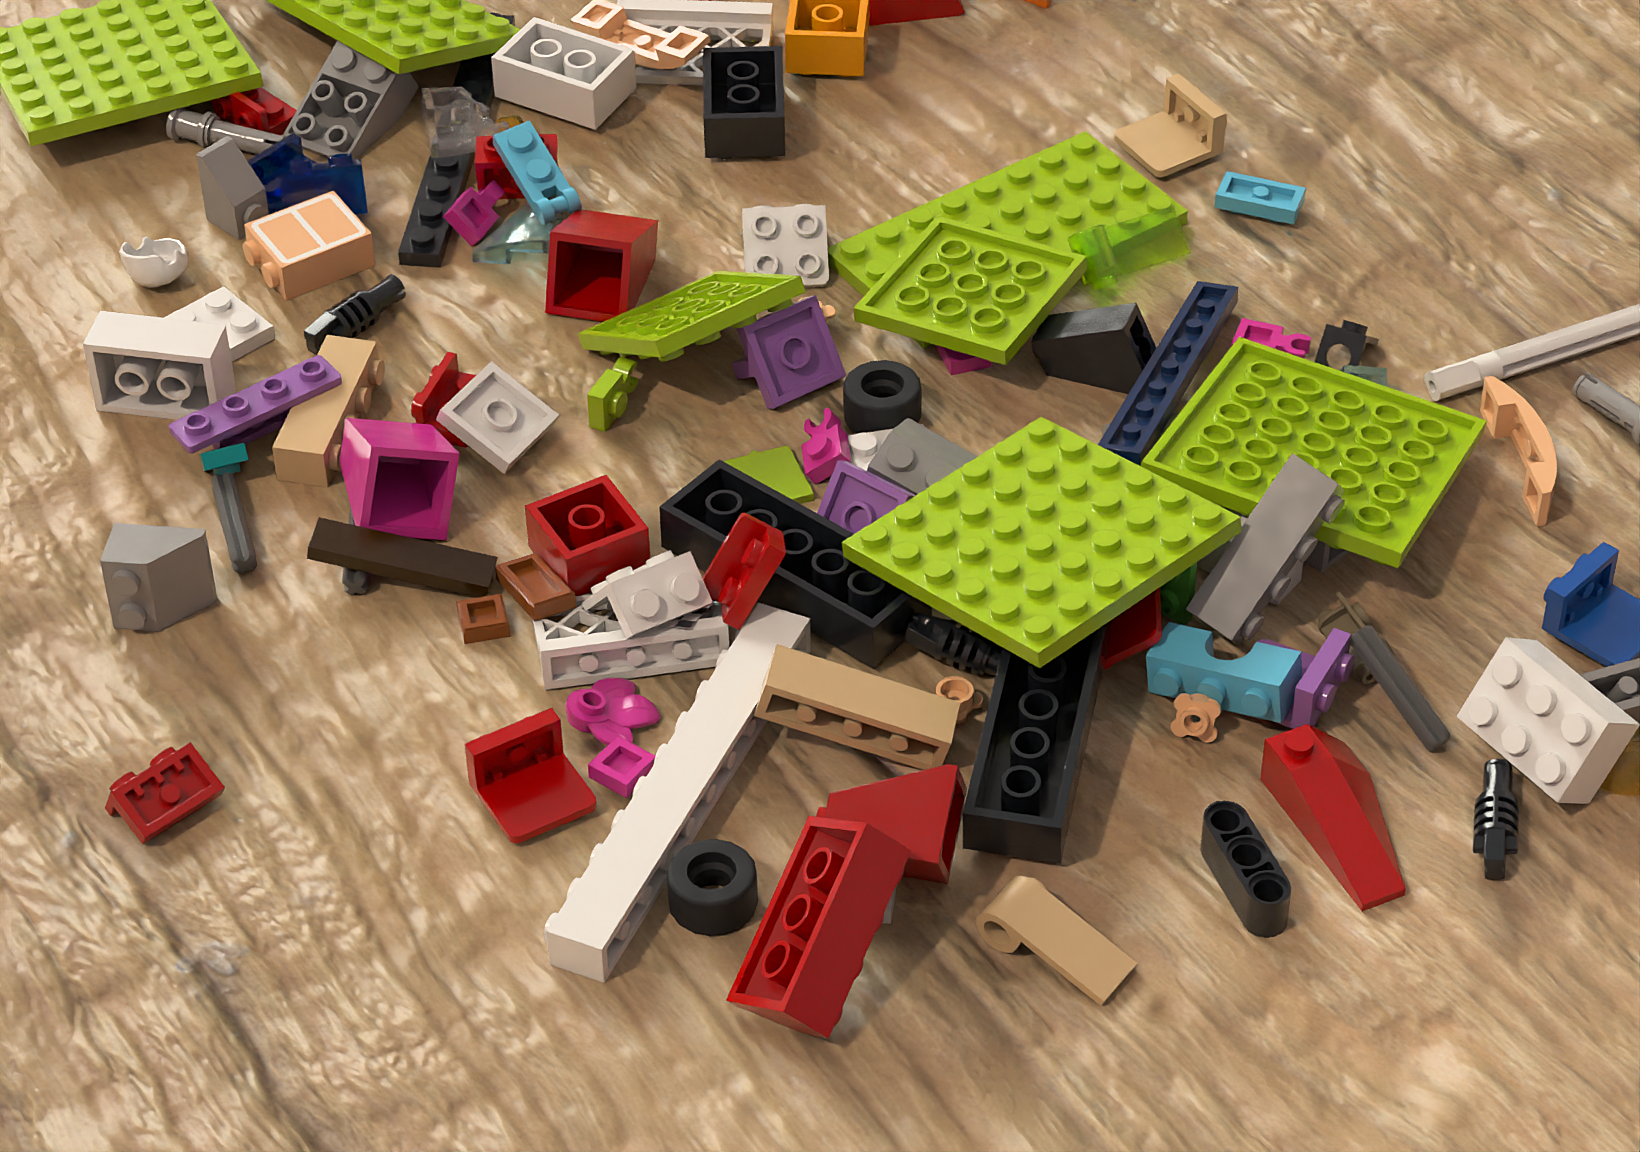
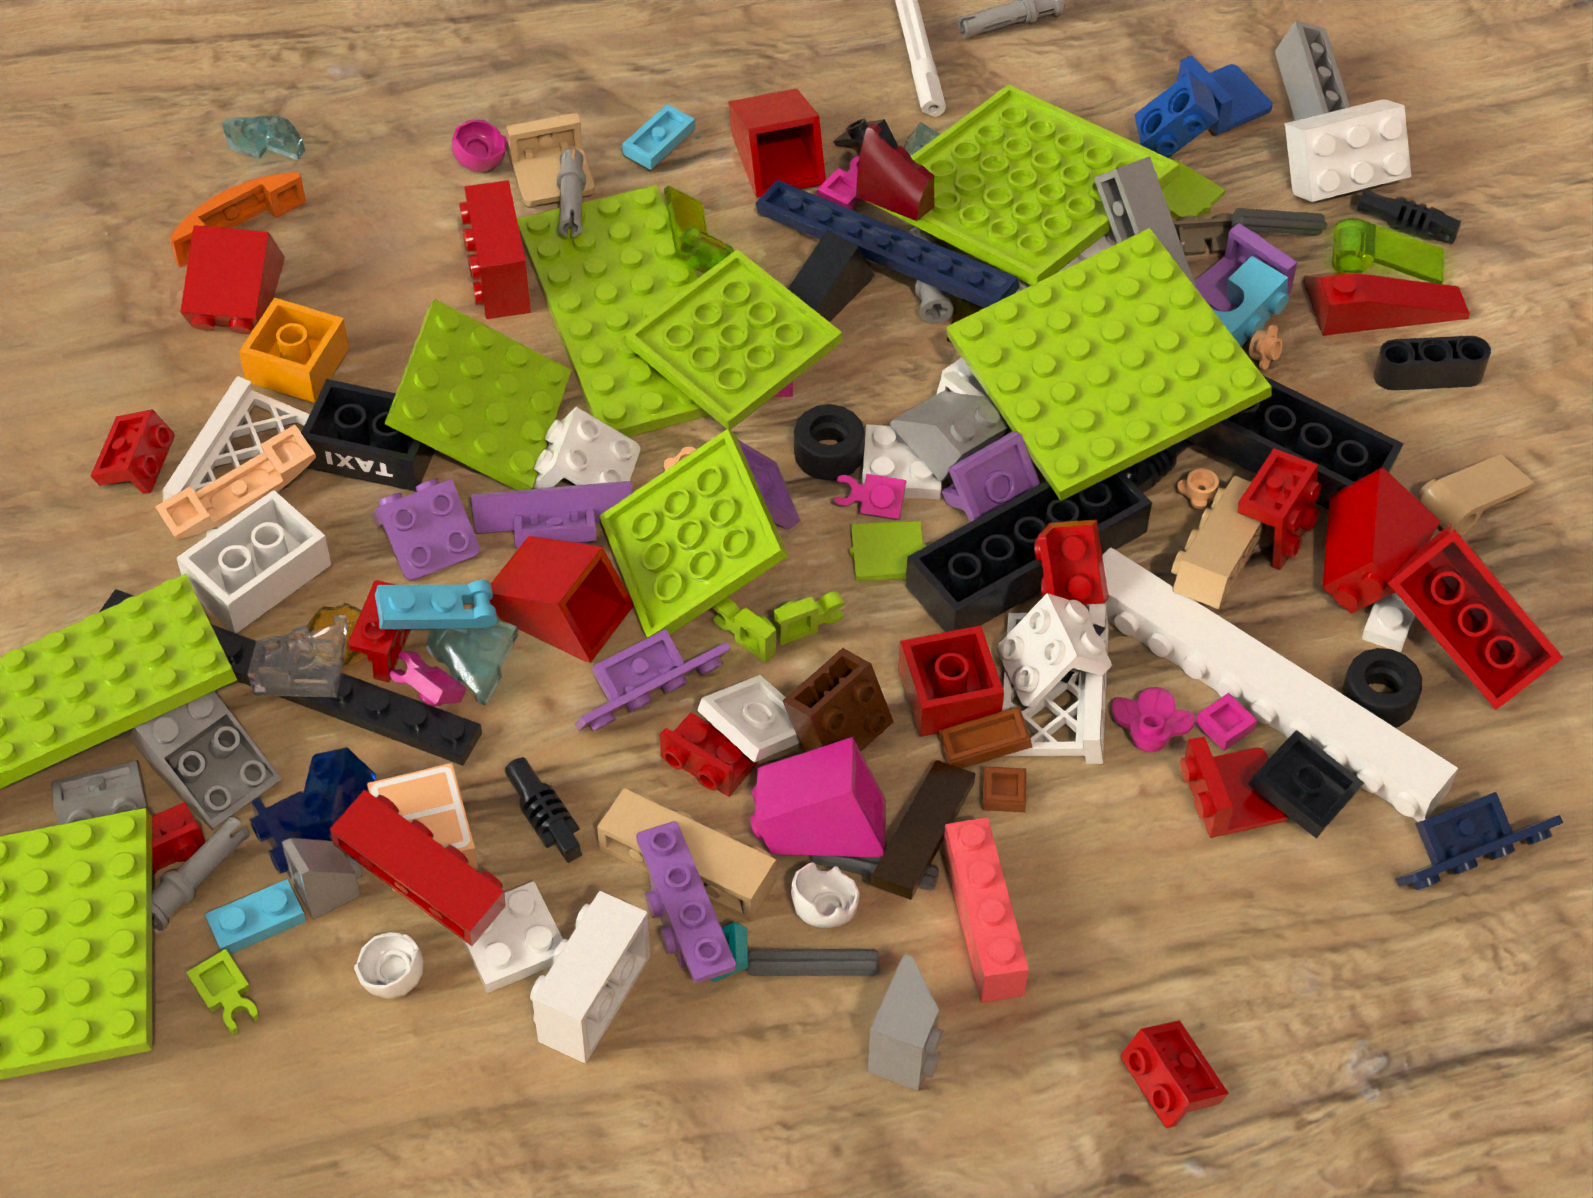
camera: 75 degrees left, 10 degrees up
(113, 177) = (221, 985): none -> lime plate
(182, 179) = (255, 917): none -> medium azure plate
(237, 230) = (418, 866): none -> red brick
(284, 64) = (99, 793): none -> light grey bracket
(298, 501) = (824, 897): none -> white hair
(316, 617) = (985, 910): none -> coral brick
(507, 454) = (839, 704): none -> reddish brown brick
(531, 987) = (1467, 833): none -> dark blue bracket
(532, 336) = (642, 670): none -> medium lavender bracket
(548, 834) = (1306, 783): none -> black plate
(639, 428) = (802, 617): none -> lime plate
(653, 165) = (427, 528): none -> medium lavender bracket
(699, 234) = (549, 513): none -> medium lavender bracket
(814, 141) = (478, 396): none -> lime plate
(920, 731) = (1285, 498): none -> red bracket
(1015, 114) = (496, 248): none -> red brick
(1142, 145) = (571, 183): none -> light grey pin
(1153, 73) = (478, 145): none -> dark pink hair
(1233, 335) = (893, 178): none -> dark red slope
(1297, 272) = (778, 140): none -> red slope
(1419, 806) = (1362, 243): none -> clear neon green door
(1427, 617) = (1191, 193): none -> lime piece
(1513, 563) = (1176, 116): none -> blue brick
(1514, 417) = (1031, 73): light nougat slope -> none

